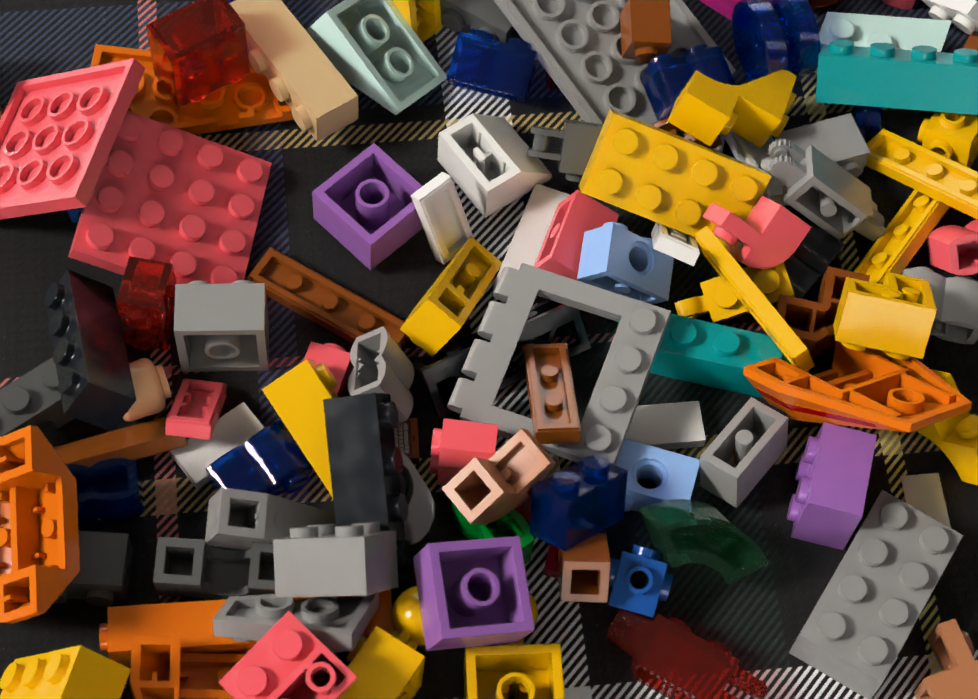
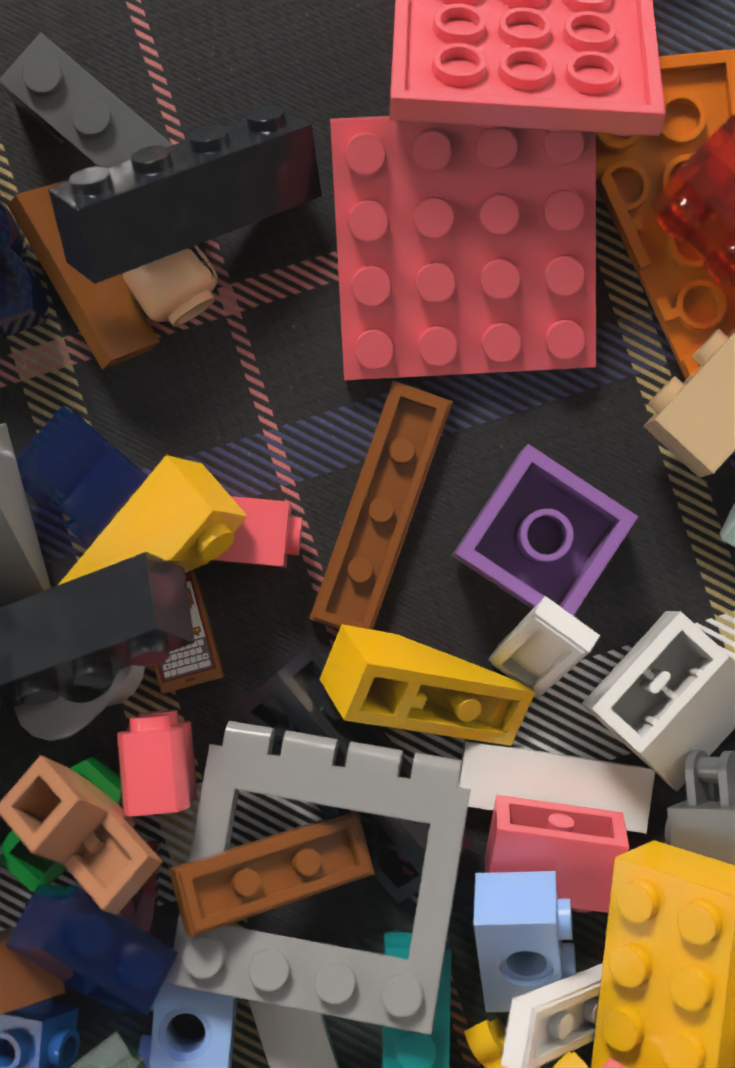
camera: 80 degrees right, 25 degrees up
(147, 303) = (291, 253): clear red brick -> none
(196, 409) = (154, 367): coral plate -> none
(221, 326) = (280, 366): light grey brick -> none
(230, 432) = (125, 413): white tile -> none
(382, 368) = (254, 616): light grey brick -> none

